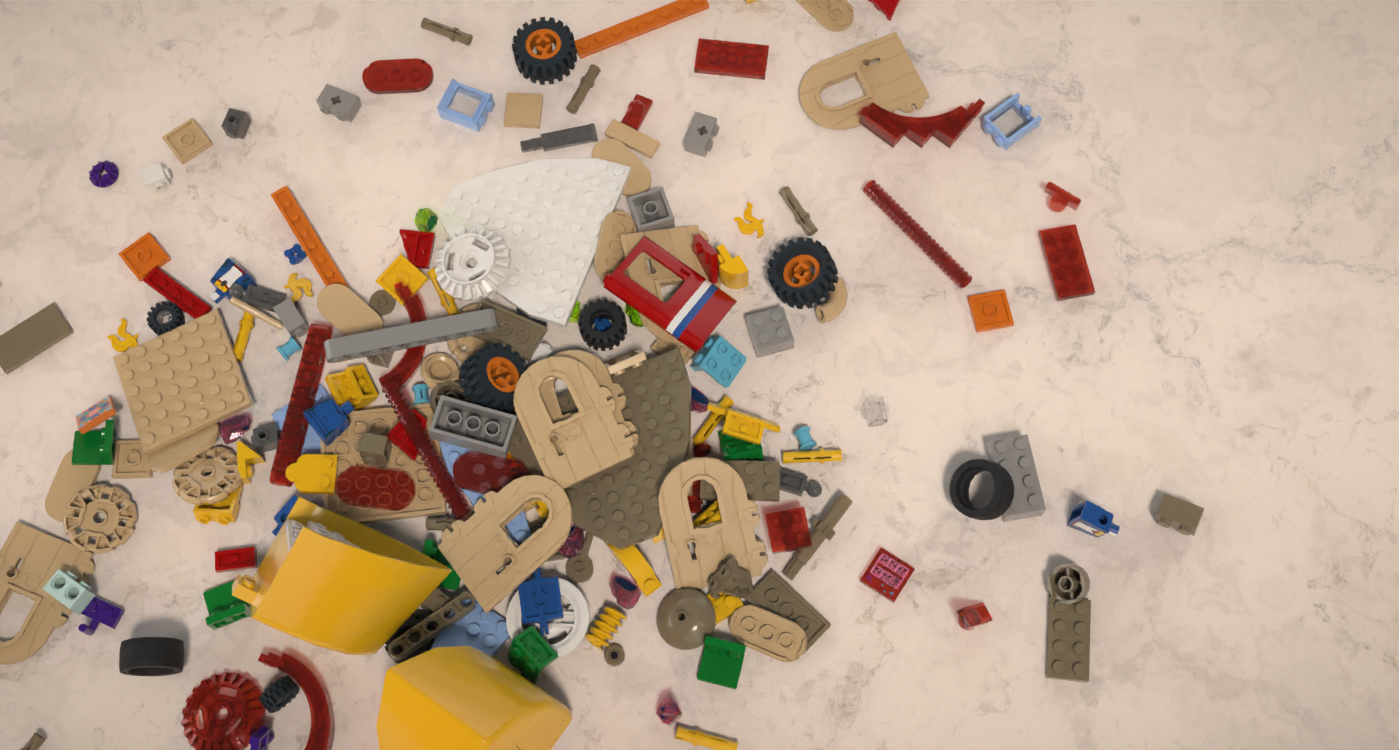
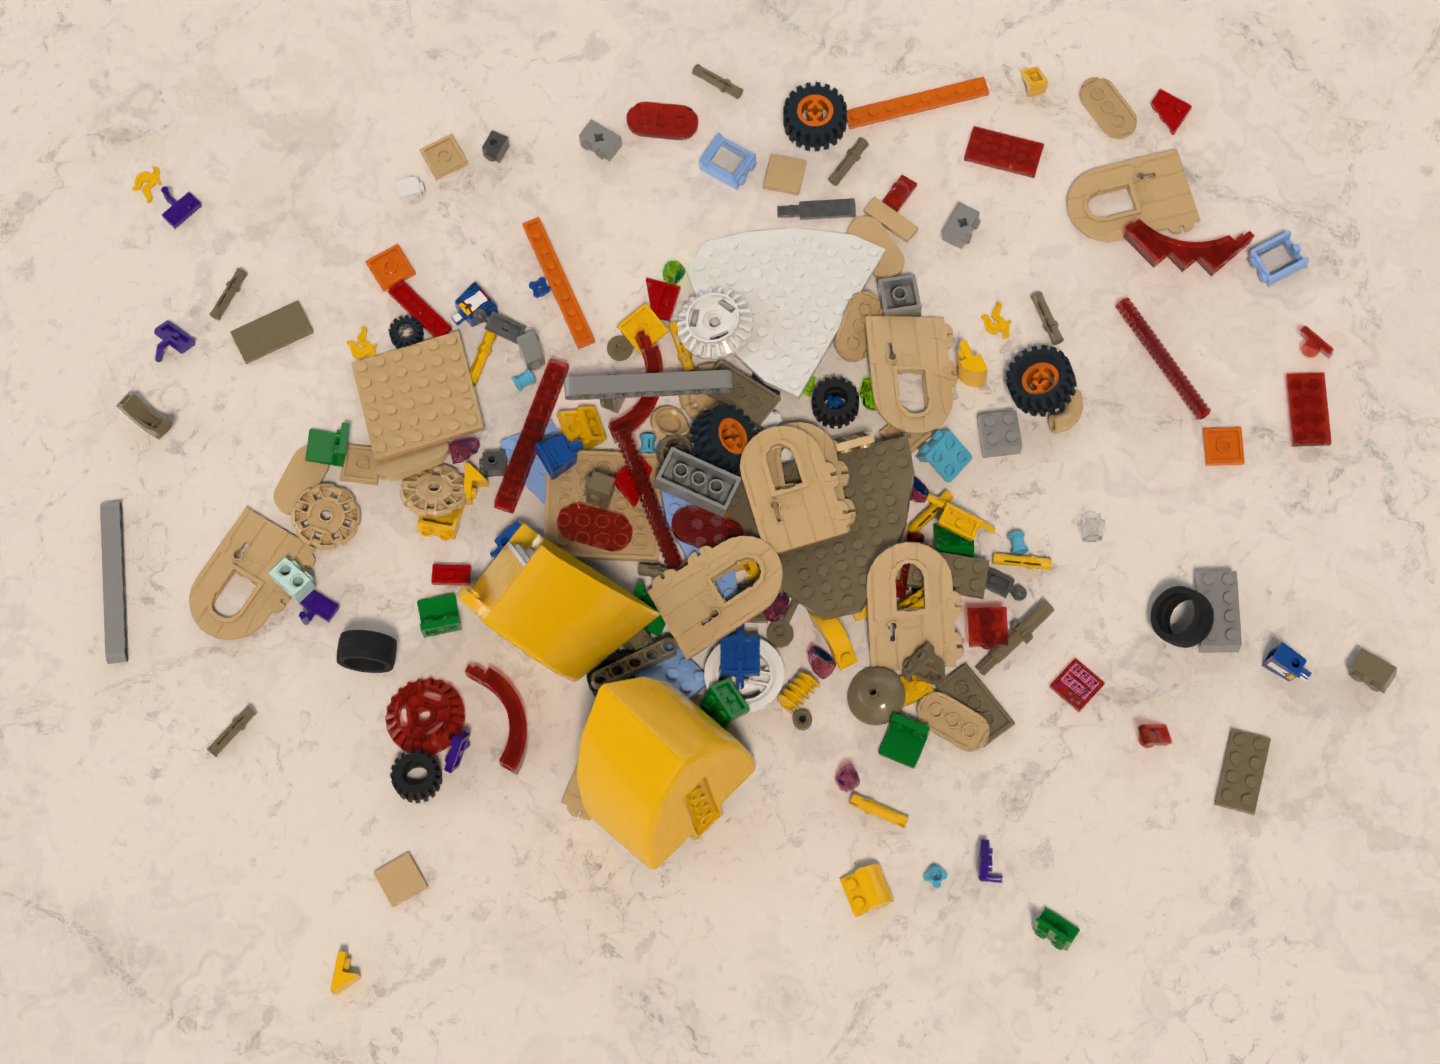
camera: 10 degrees right, 0 degrees up
(95, 415) = (331, 416): orange tile -> none
(107, 179) = (361, 184): dark purple gear -> none
(255, 312) = (496, 340): tan bar -> none
(279, 694) = (481, 705): black bush -> none
(294, 286) = (536, 318): yellow piece -> none
(314, 473) = (538, 504): yellow plate -> none
(347, 310) = (586, 351): tan tile -> none
(689, 313) = (924, 402): red piece -> none
(707, 257) = (948, 350): red wing -> none
(1068, 583) = (1251, 718): dark tan cylinder -> none

